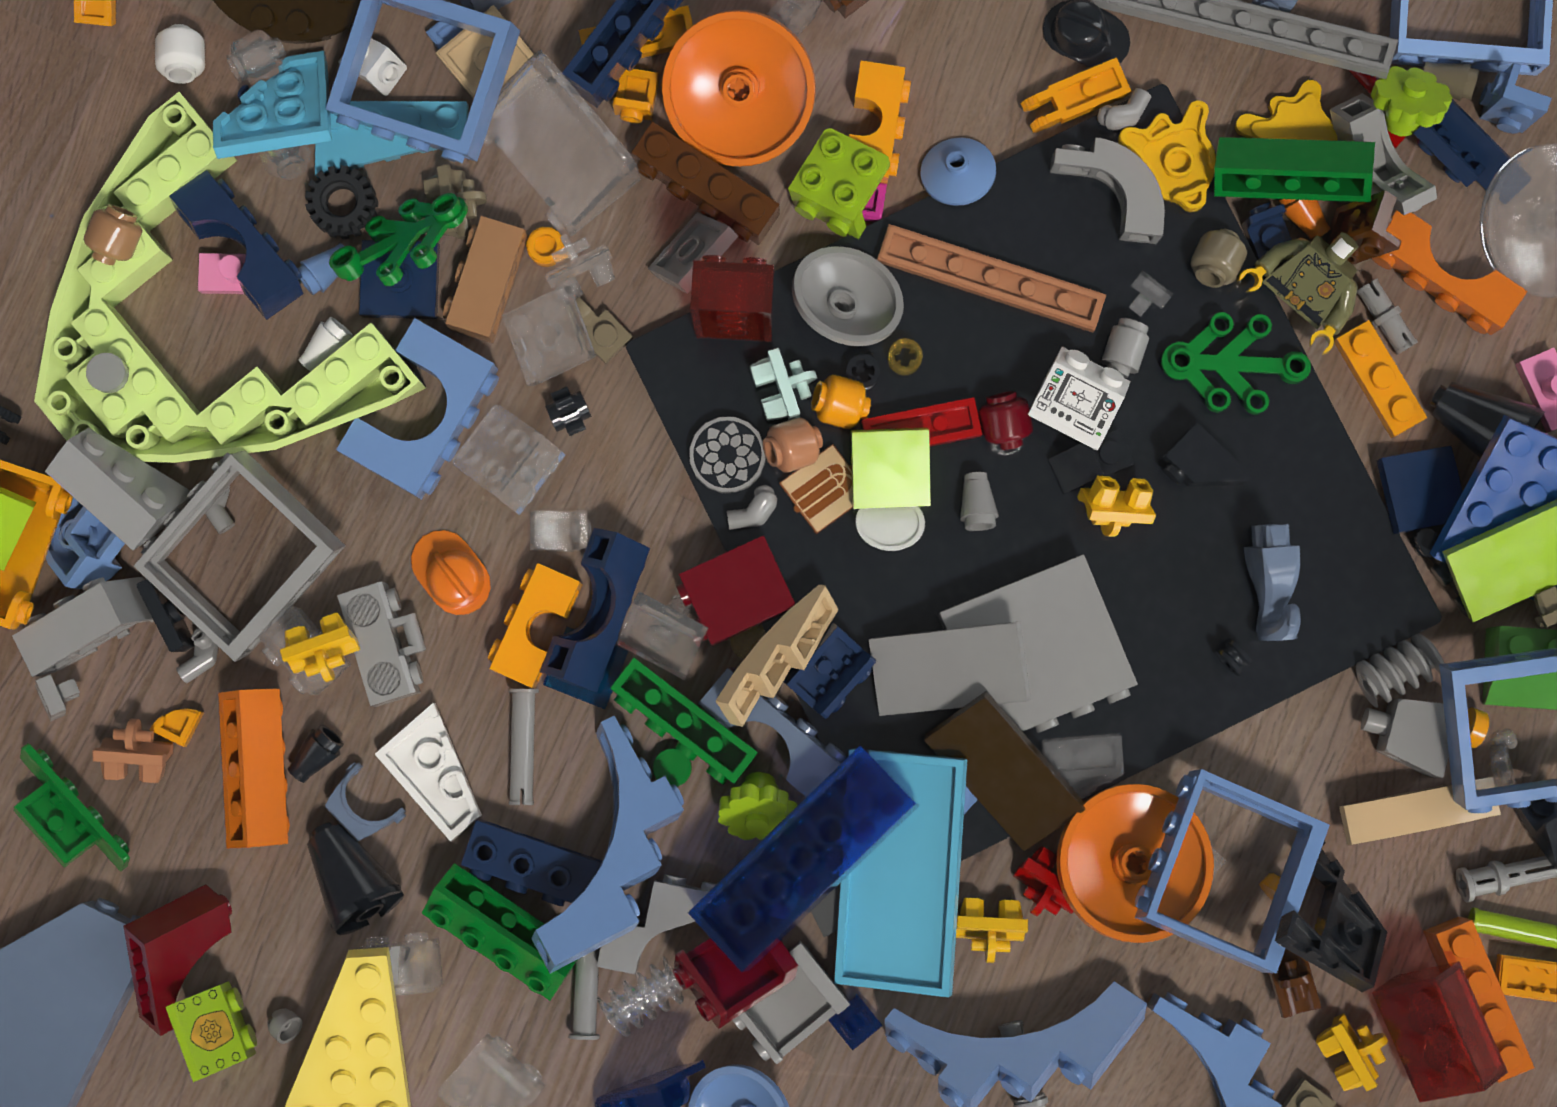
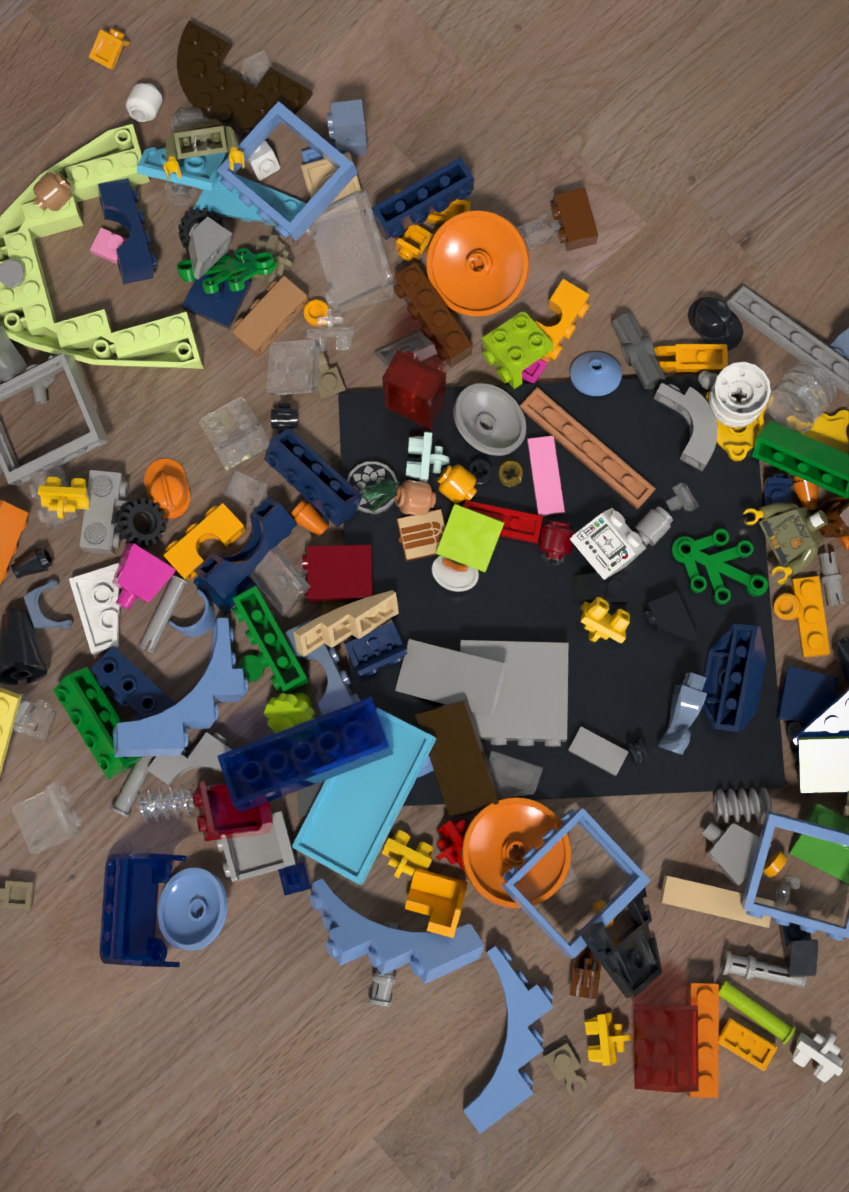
camera: 25 degrees right, 5 degrees down
(285, 76) = (200, 140): none -> olive torso
(316, 271) = (167, 269): medium blue cone -> none
(325, 341) = (153, 312): white cone -> none
(359, 219) = (207, 245): none -> light grey slope
(417, 462) = (175, 410): medium blue arch -> none
(457, 628) = (154, 518): none -> black tyre
(470, 710) = (139, 576): none -> dark pink torso
(584, 736) = (203, 625): none -> medium blue helmet
(643, 476) = (313, 477): none -> dark blue brick
(660, 532) = (309, 518): none -> orange cone
(744, 460) = (384, 489): none -> clear green piece
(757, 511) = (373, 531): light grey arm -> none
(883, 516) = (460, 567): none -> orange leg
(953, 340) = (545, 476): none -> bright pink tile
(978, 503) = (516, 584): light grey cone -> none
(1002, 117) = (638, 351): none -> dark grey piece
(1060, 966) = (439, 898): none -> light orange panel
(1178, 103) = (751, 387): none -> white wheel
(1181, 679) = (598, 751): none -> light grey tile
(1218, 258) = (737, 495): dark tan head -> none
(1248, 88) = (801, 397): none -> clear wheel
(1320, 501) = (734, 678): none -> dark blue wedge
(1345, 378) = (787, 606): none -> light orange tile

